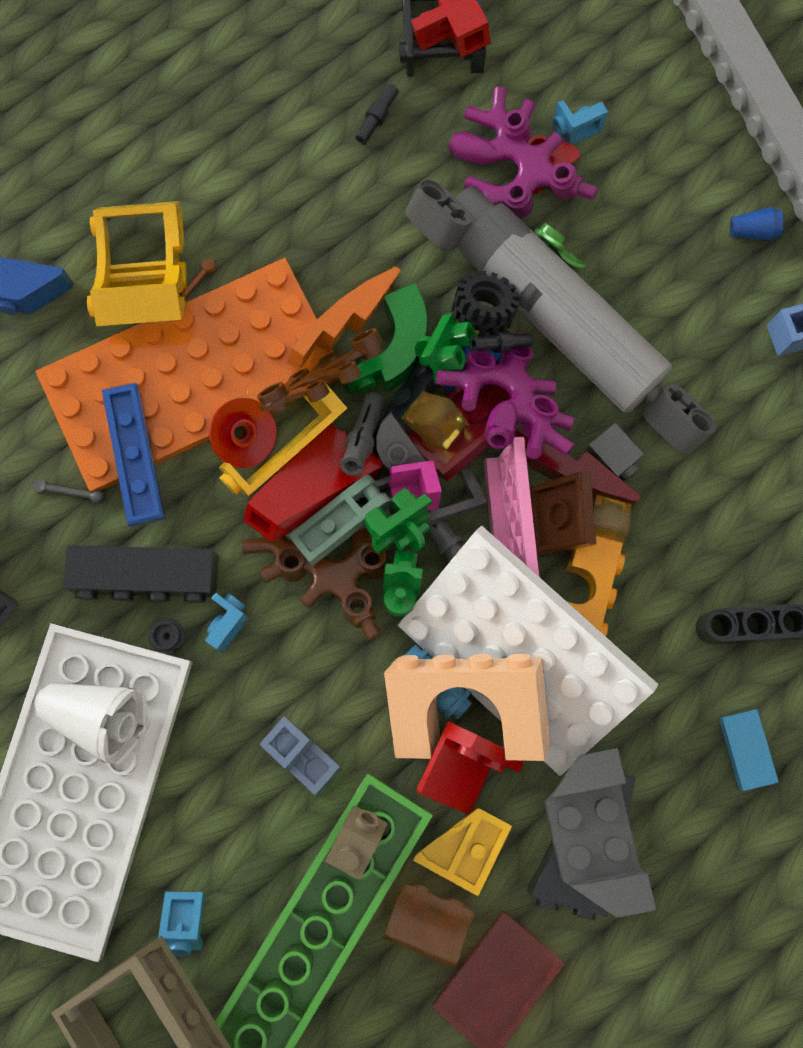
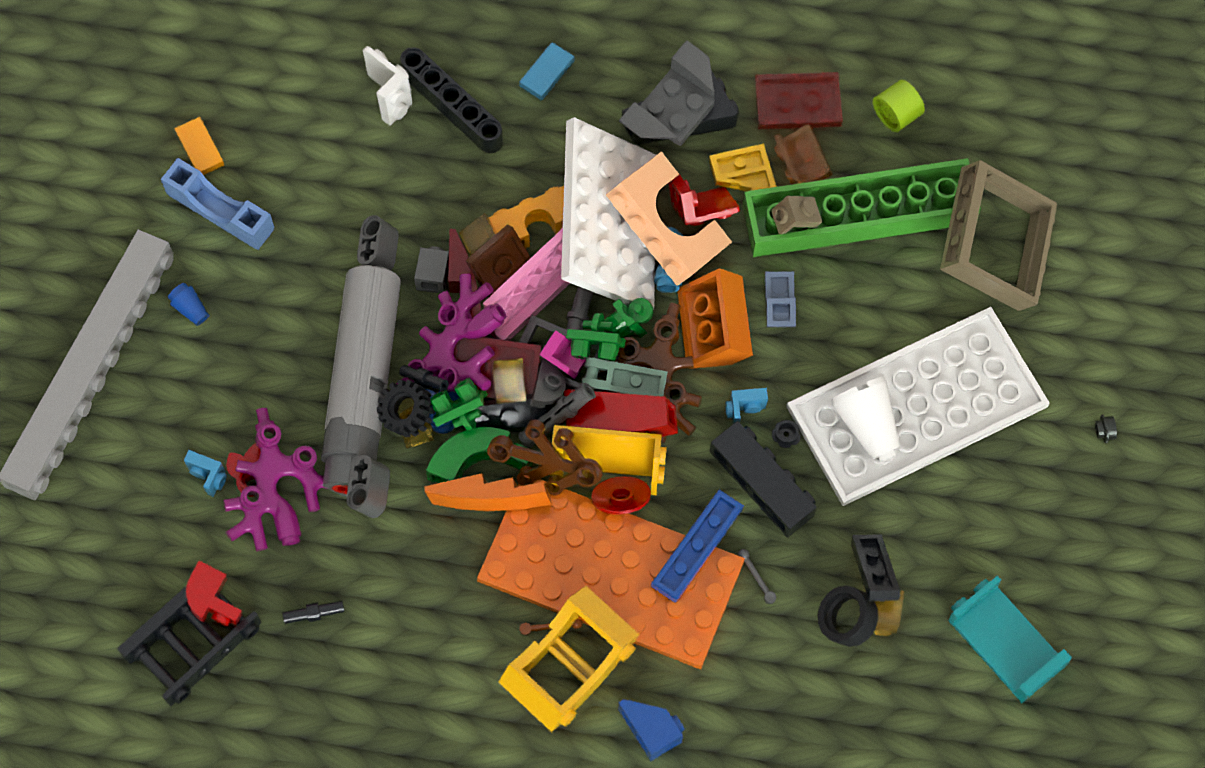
camera: 130 degrees left, 10 degrees down
(182, 921) = (927, 283): dark azure bracket -> none
(330, 669) = (715, 319): none -> orange slope
(554, 240) = (317, 407): bright green plate -> none

